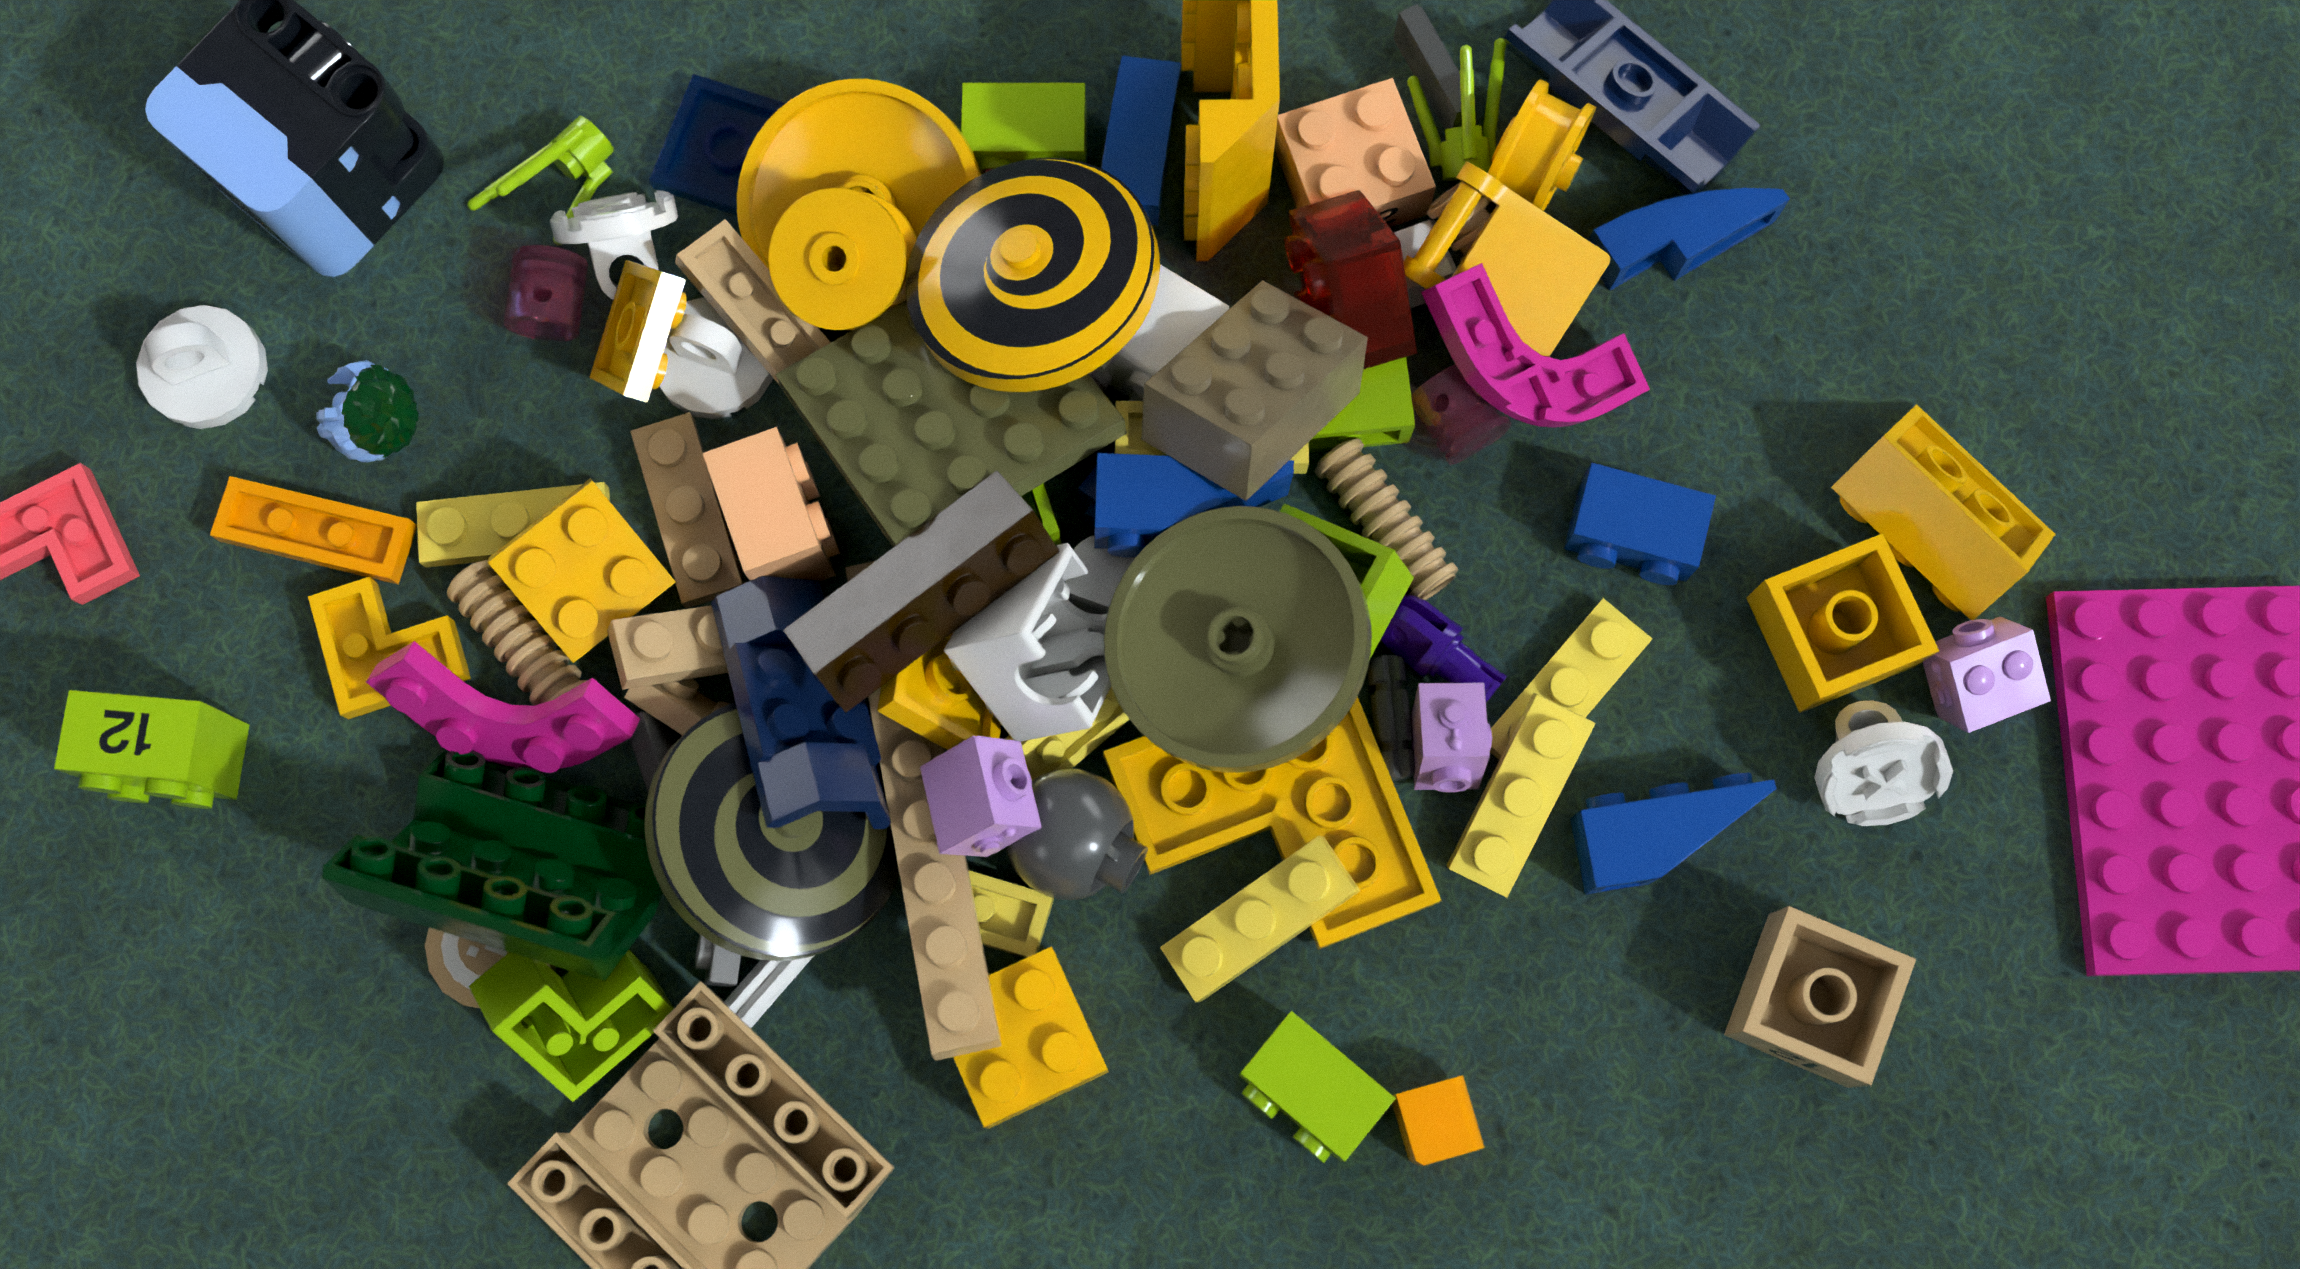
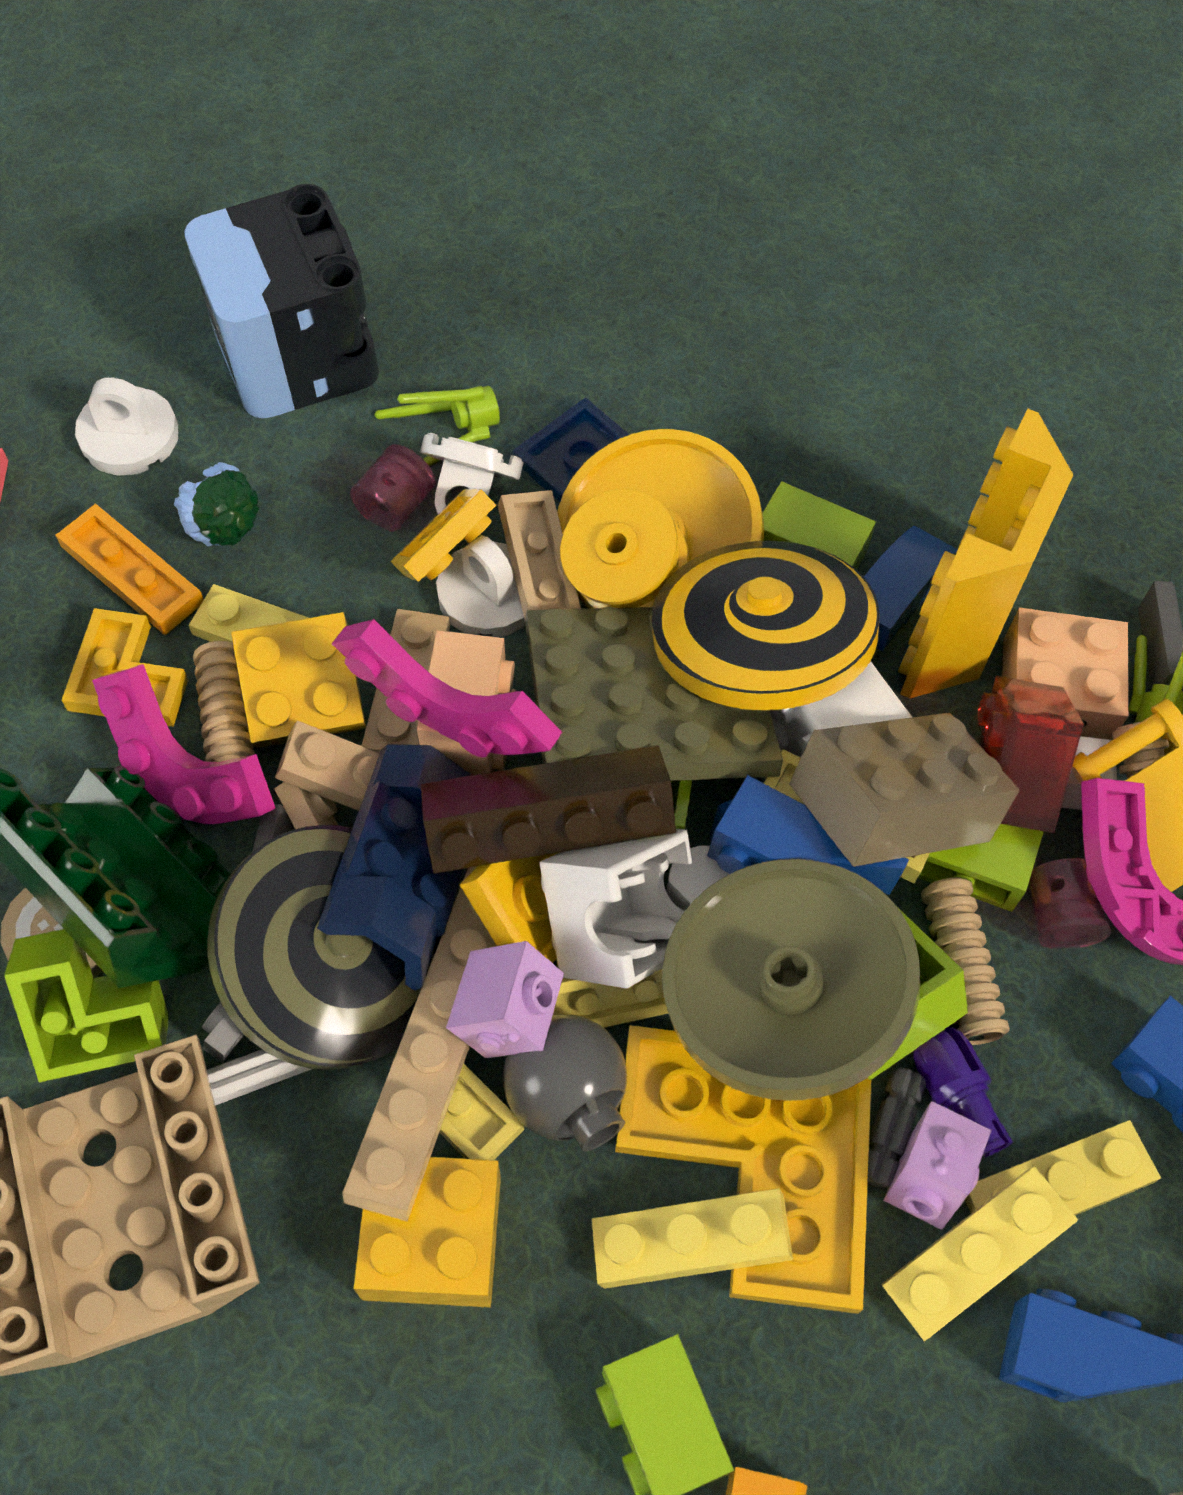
camera: 25 degrees right, 15 degrees down
(726, 541) = (480, 723): none -> dark pink plate

